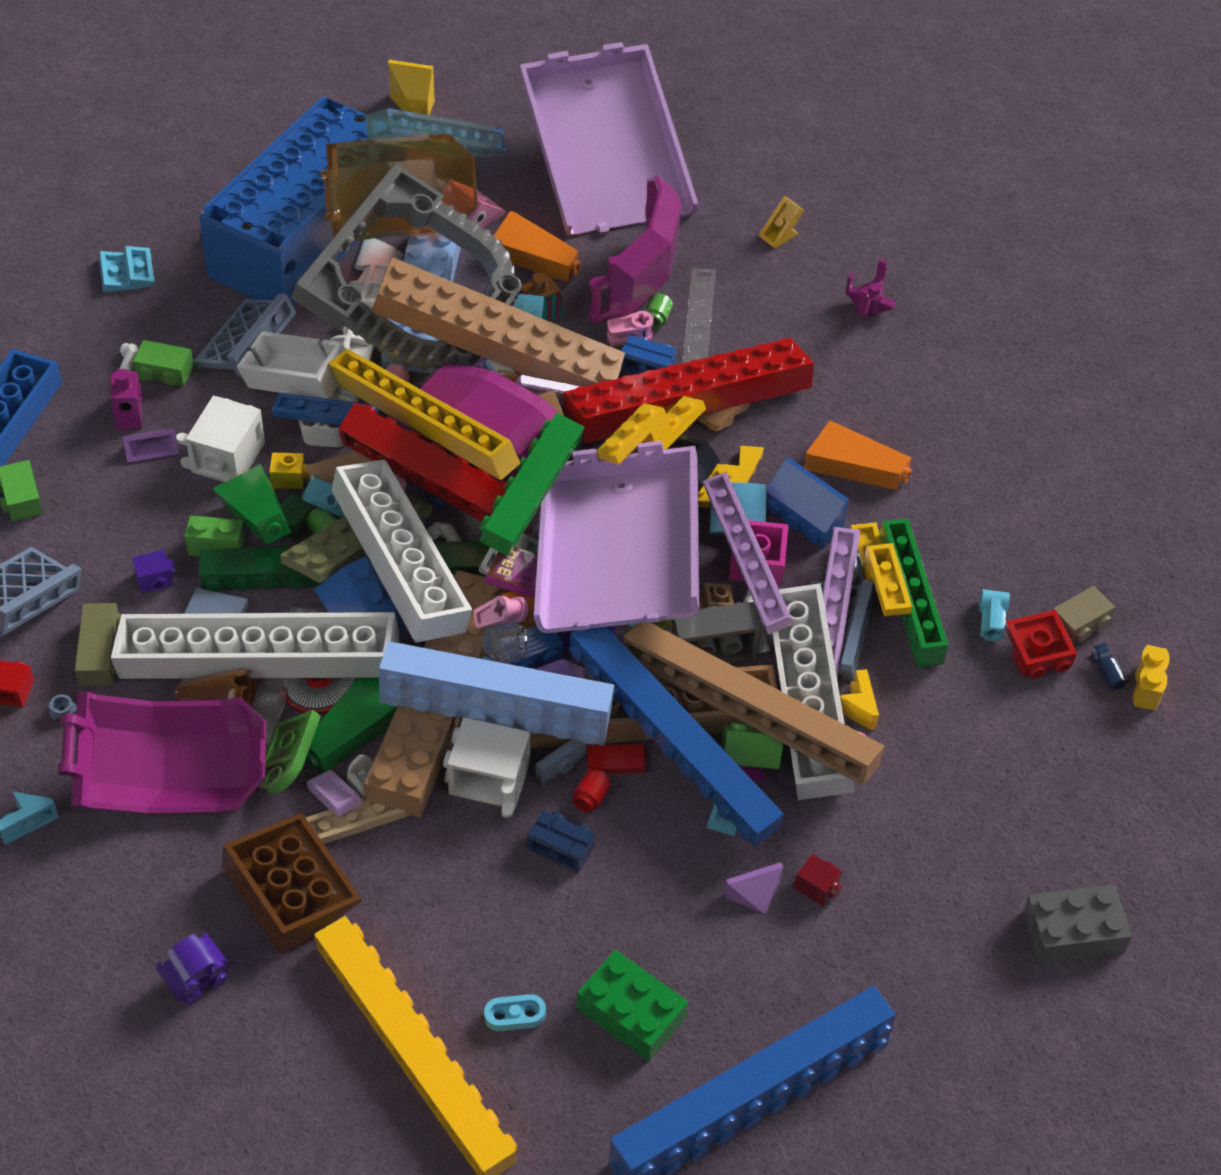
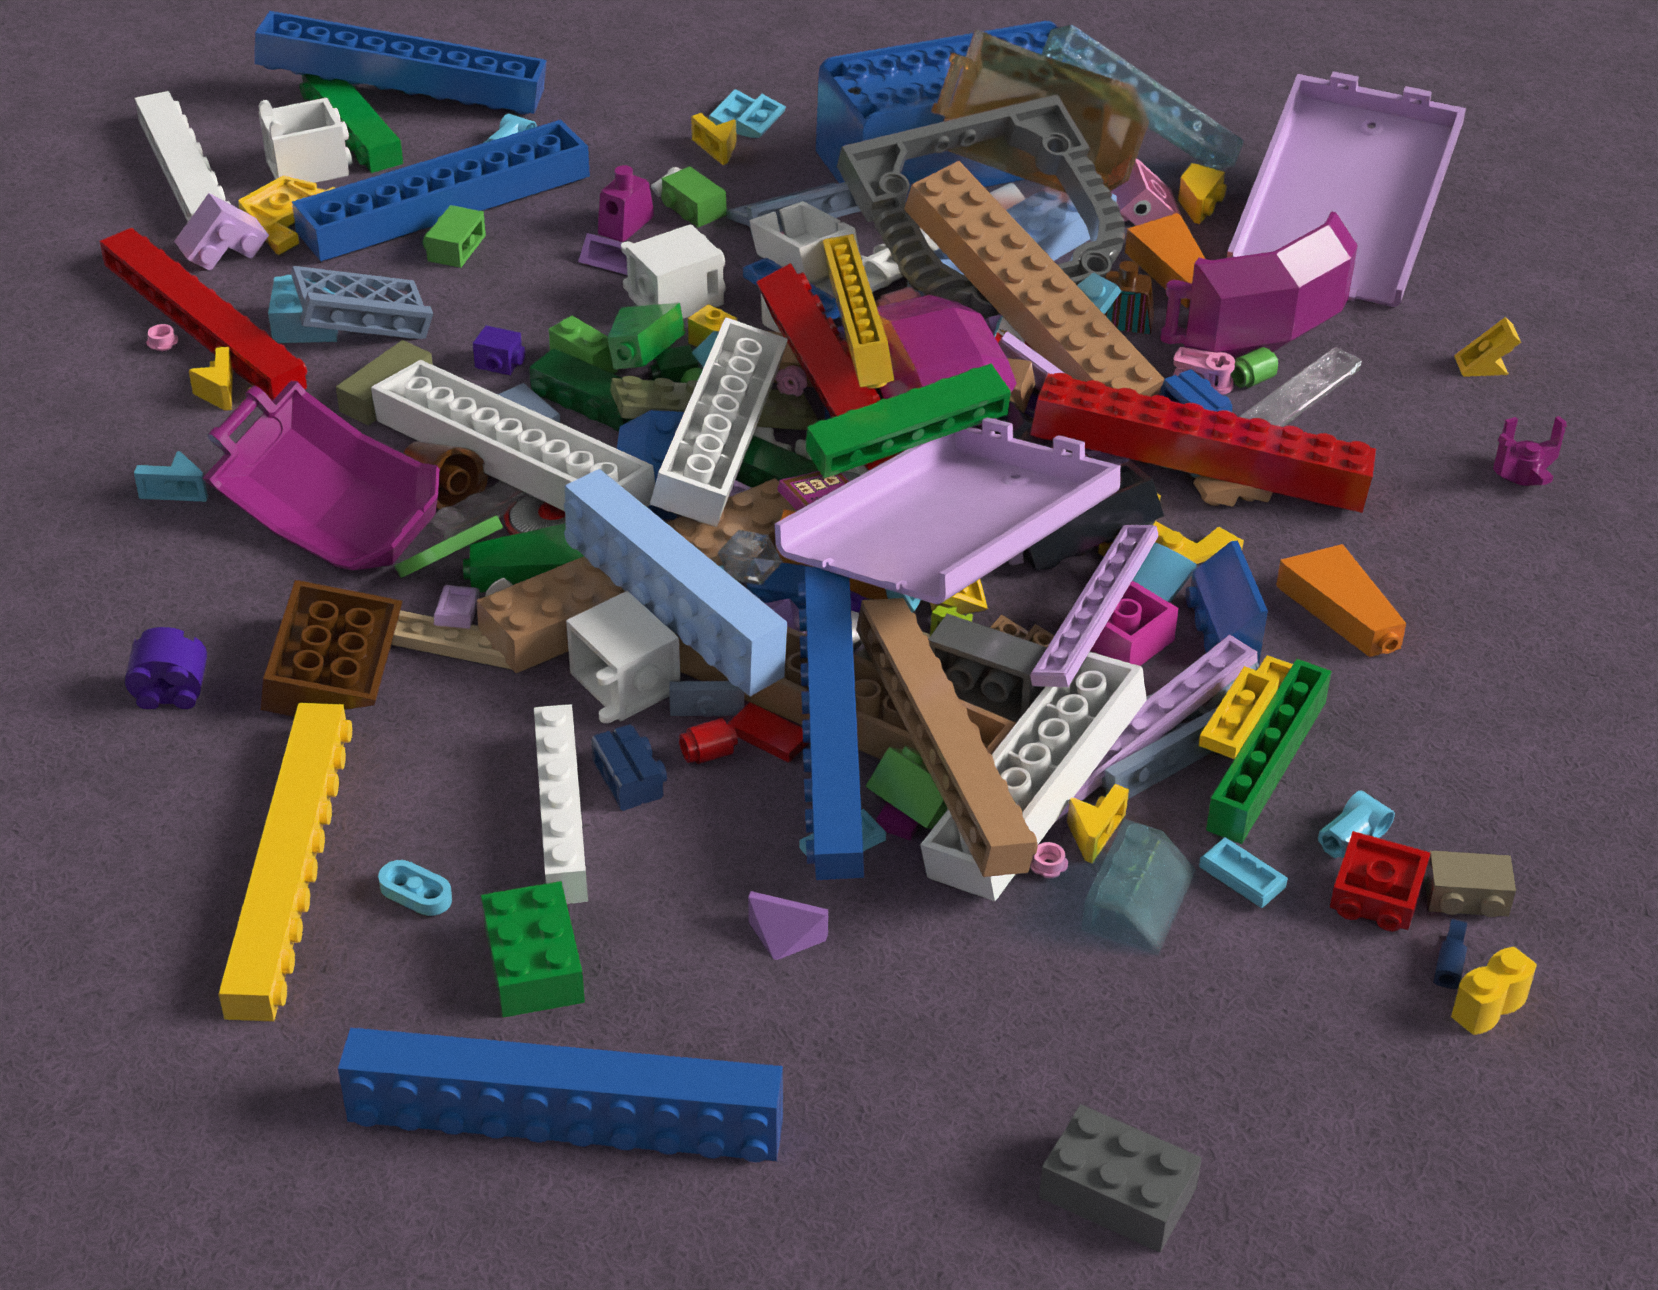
camera: 40 degrees right, 10 degrees down
(126, 304) = (714, 139): none -> yellow slope
(411, 86) = (1190, 72): yellow slope -> none
(500, 183) = (1201, 190): none -> yellow slope
(501, 611) = (760, 517): bright pink piece -> none
(548, 893) = (560, 801): none -> white brick
(650, 425) = (1102, 437): yellow bracket -> none
(818, 880) = (861, 956): dark red brick -> none
(920, 732) = (1138, 889): none -> clear light blue slope
(963, 683) = (1243, 872): none -> medium azure plate

